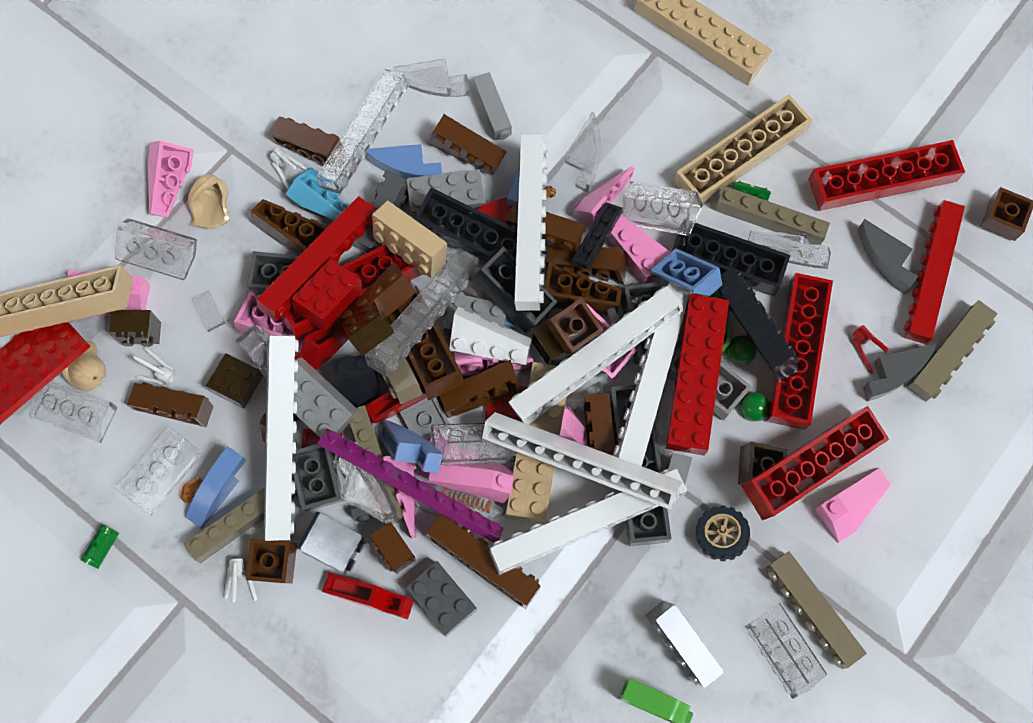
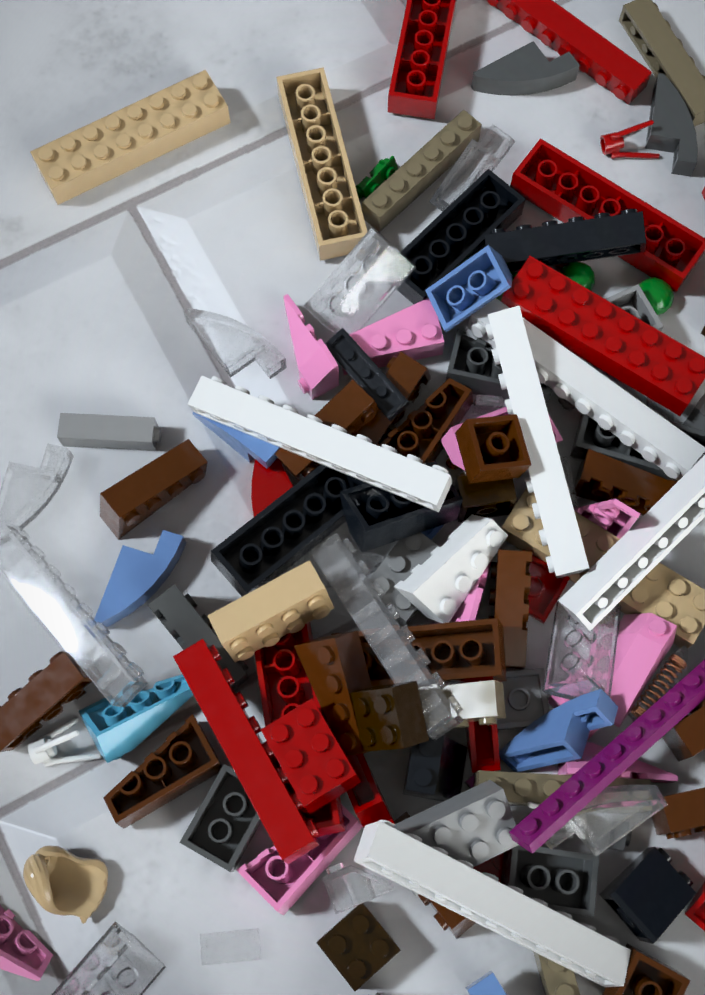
camera: 65 degrees left, 0 degrees up
(462, 186) = (212, 519): light grey brick -> none

